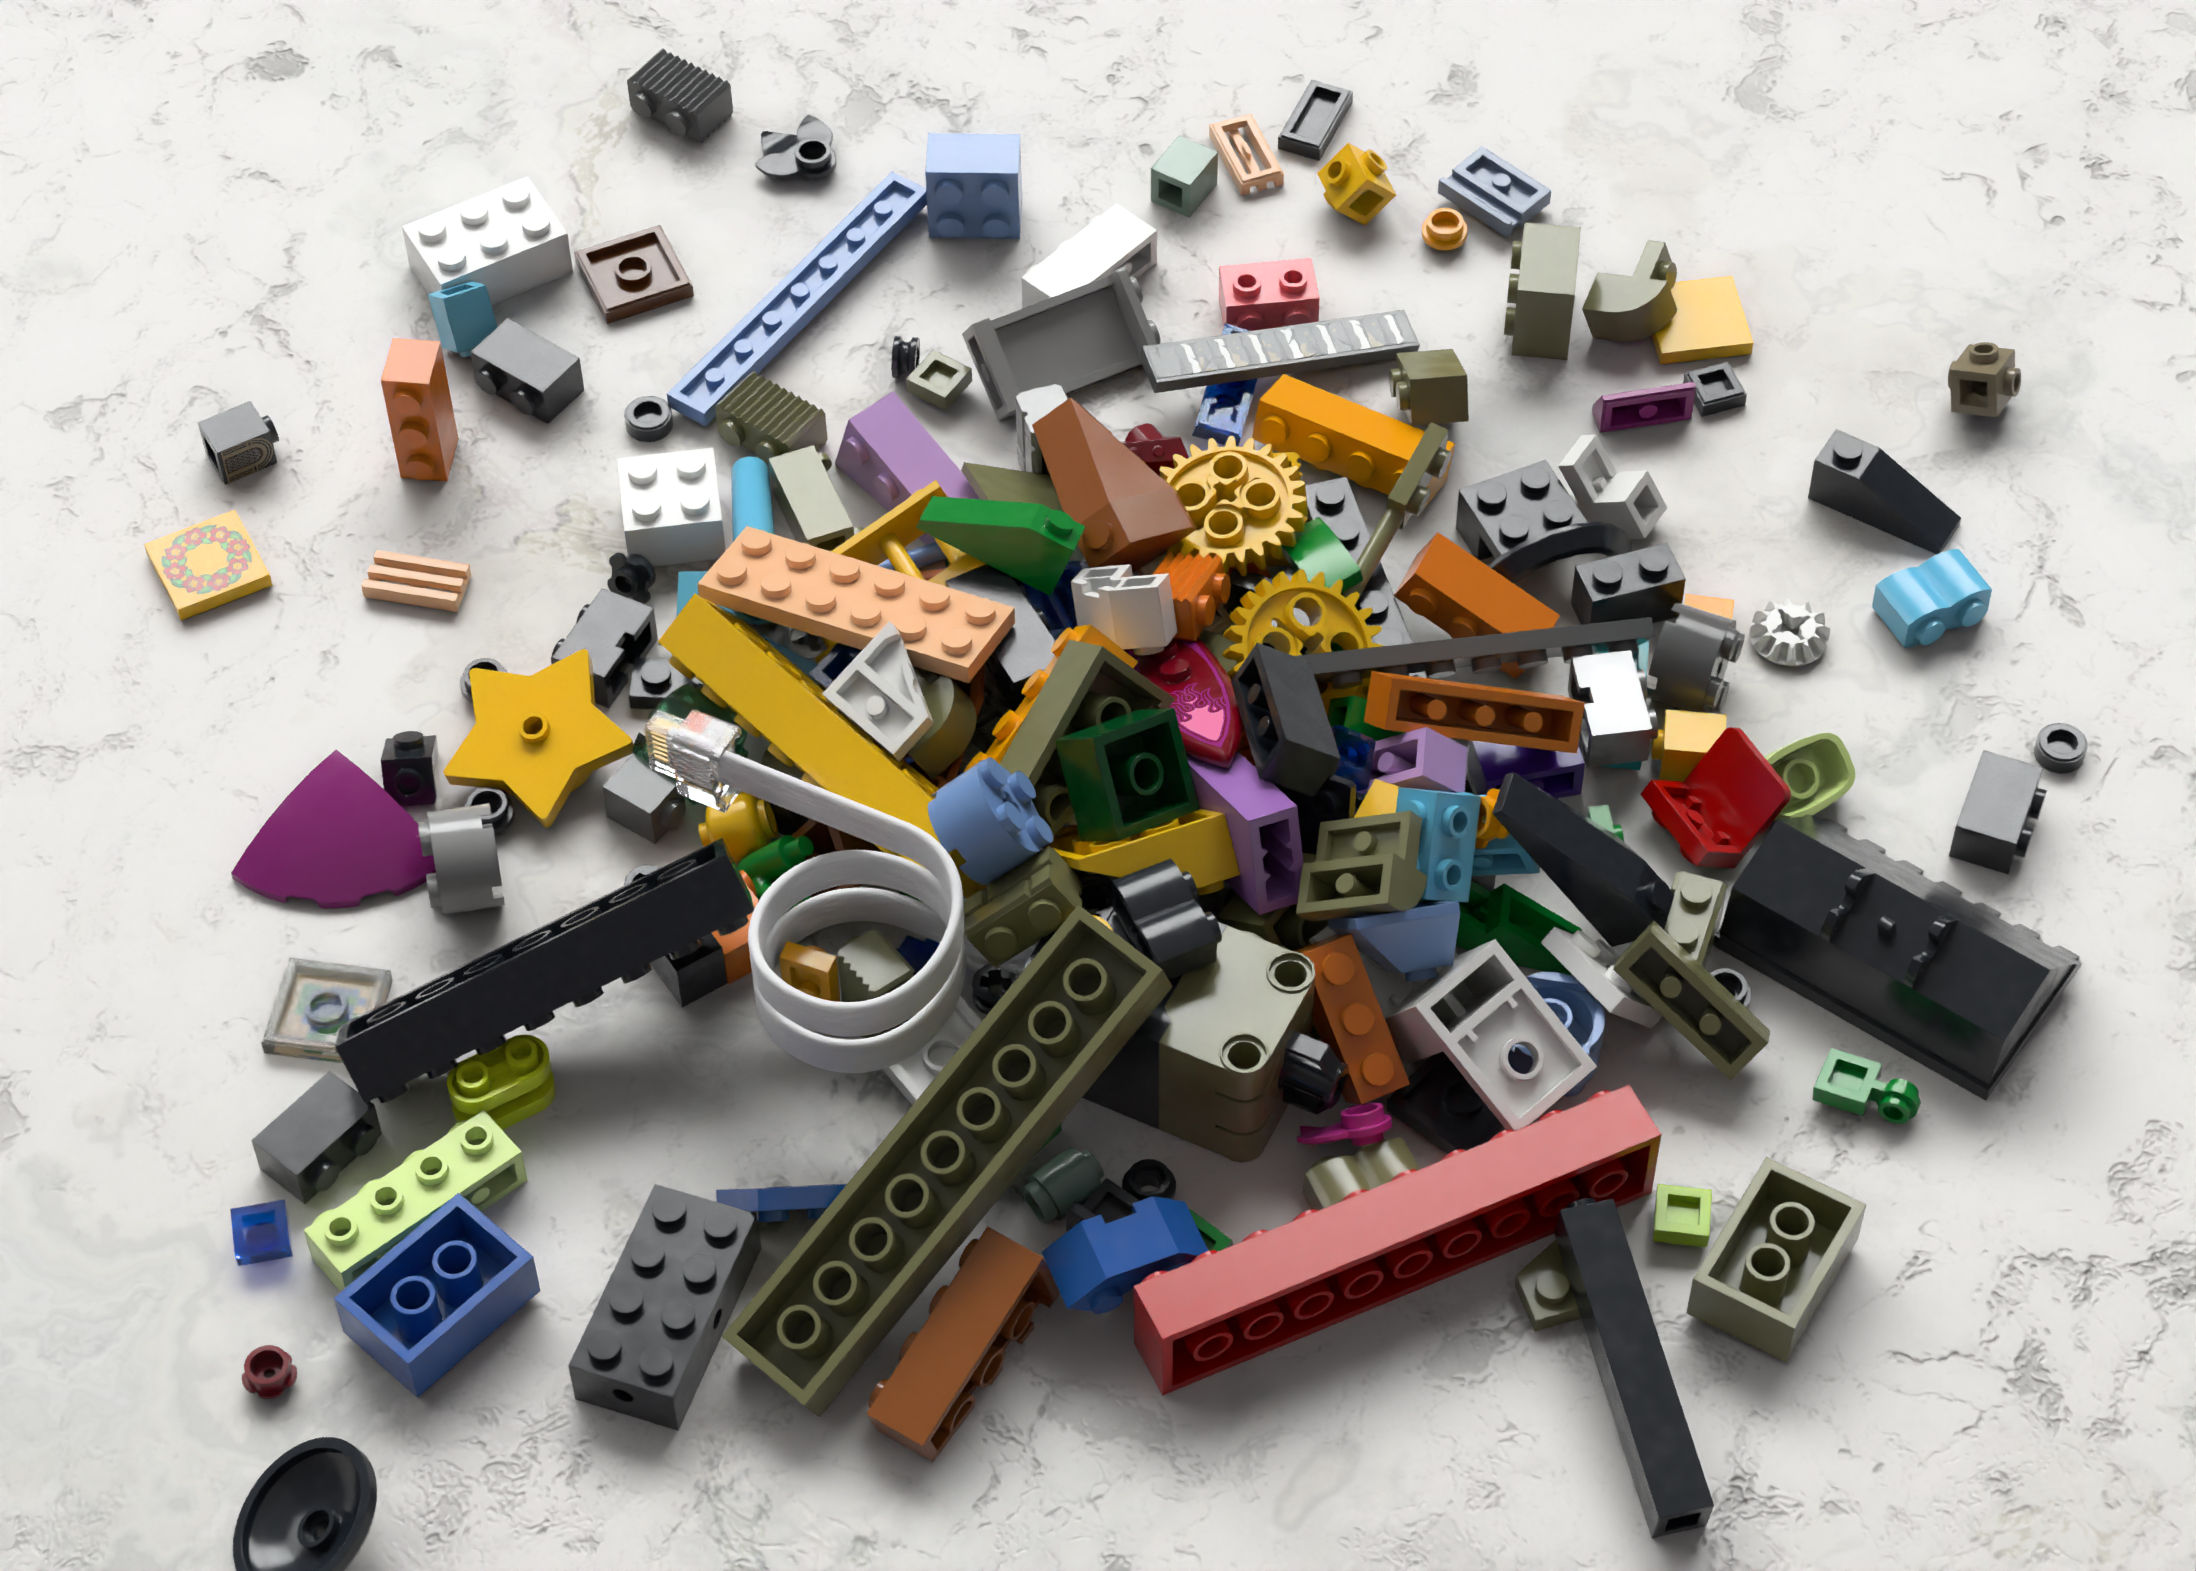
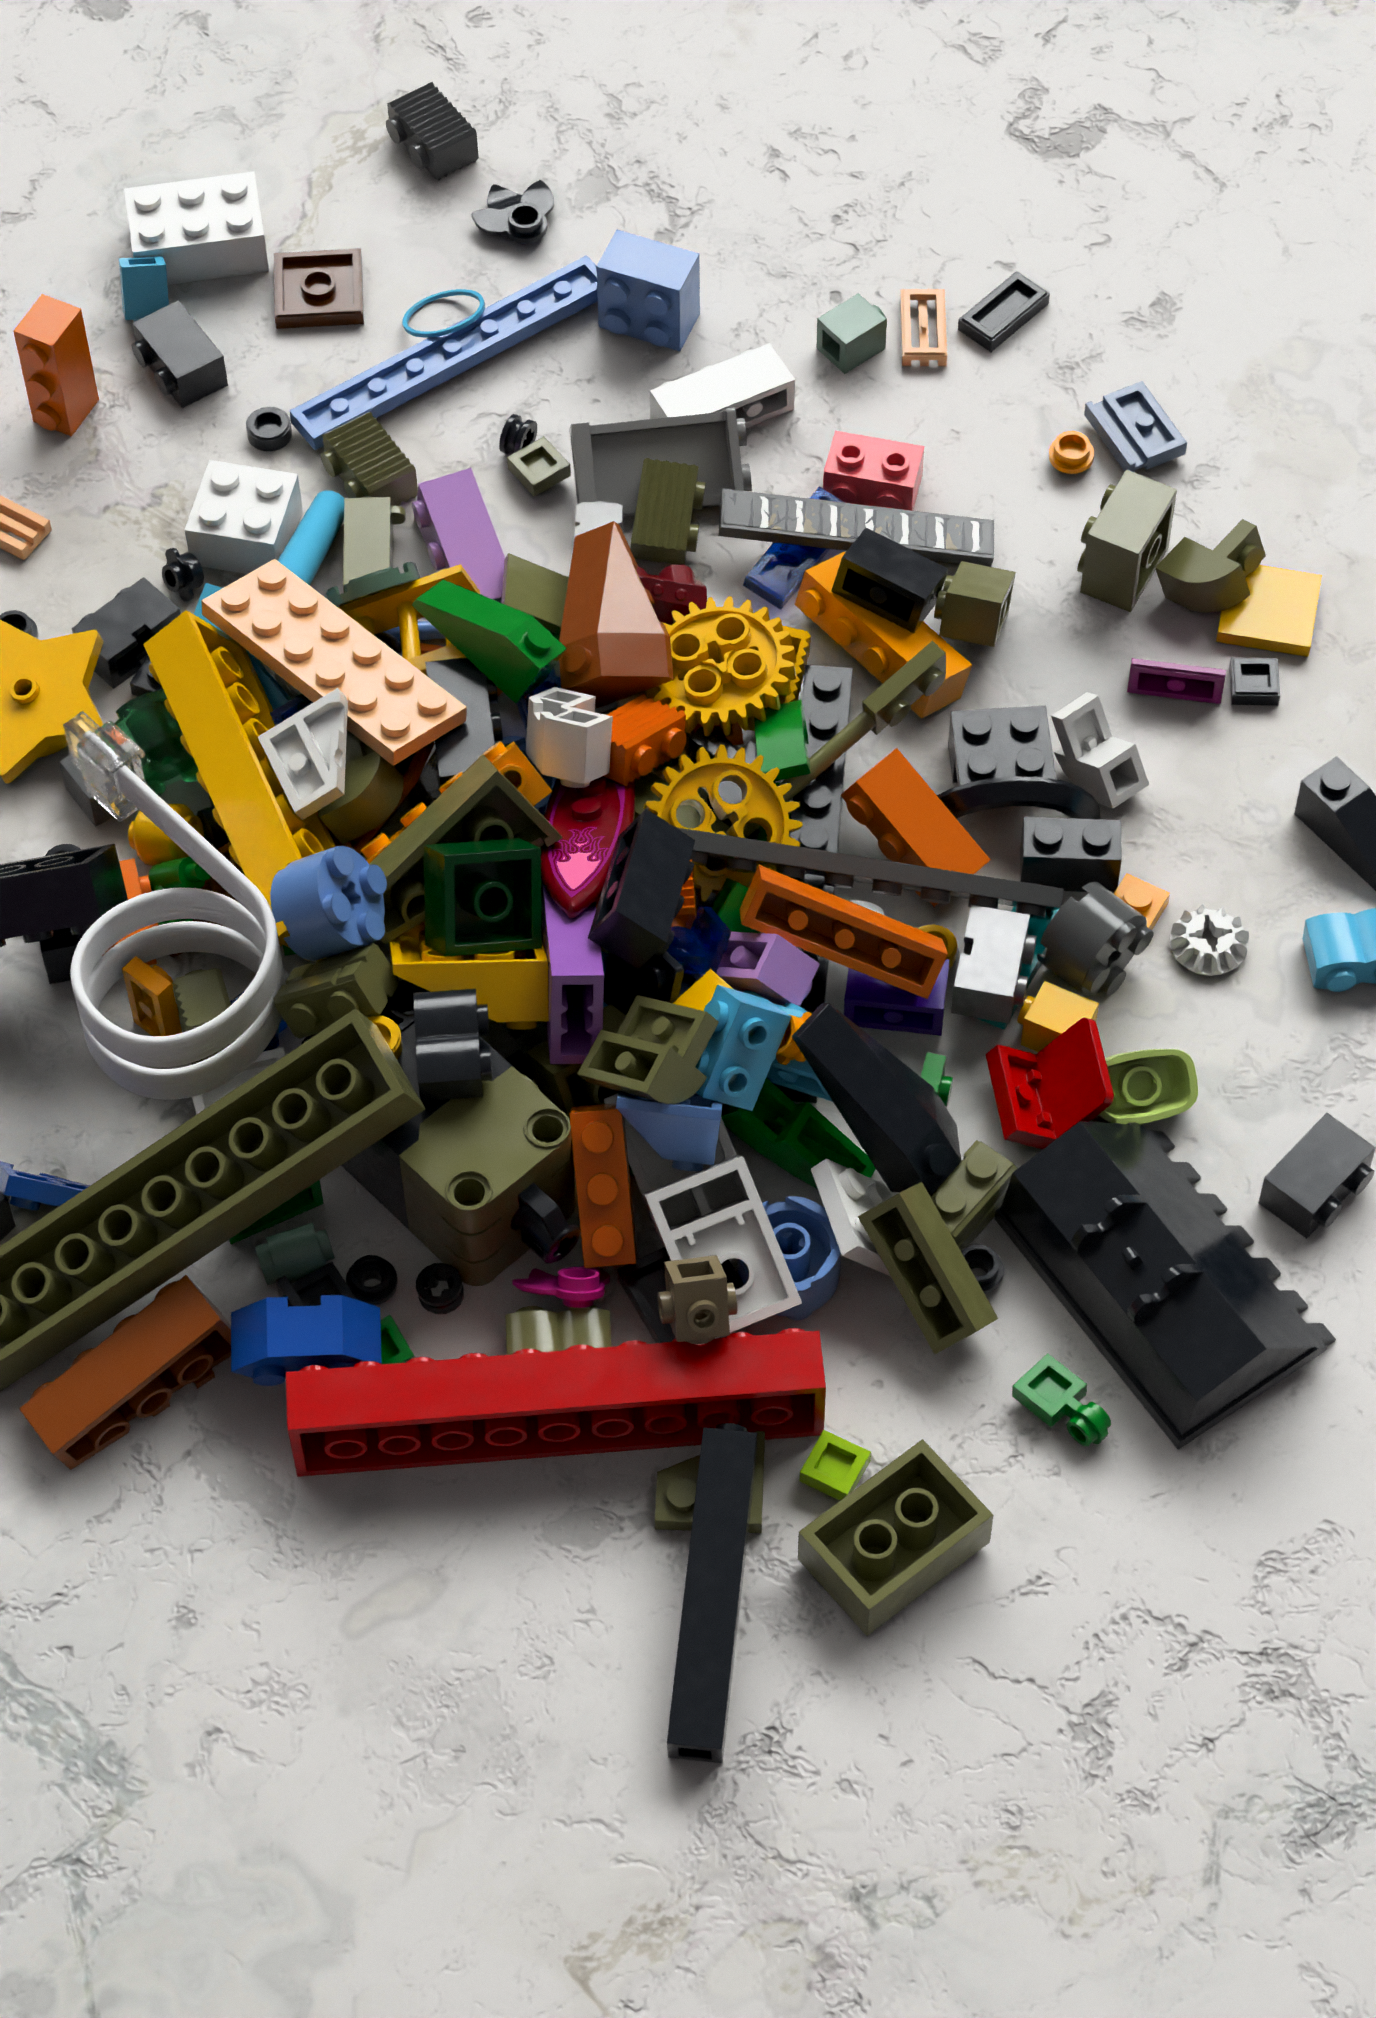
camera: 20 degrees right, 5 degrees up
(756, 288) = (427, 334): none -> medium azure piece
(853, 523) = (373, 584): none -> sand green tile
(1090, 375) = (665, 512): none -> olive brick
(1232, 1167) = (450, 1298): none -> black bush
(1347, 385) = (889, 580): none -> black brick
(1356, 183) = (1005, 385): yellow brick -> none
(1508, 1088) = (697, 1299): none -> dark tan brick

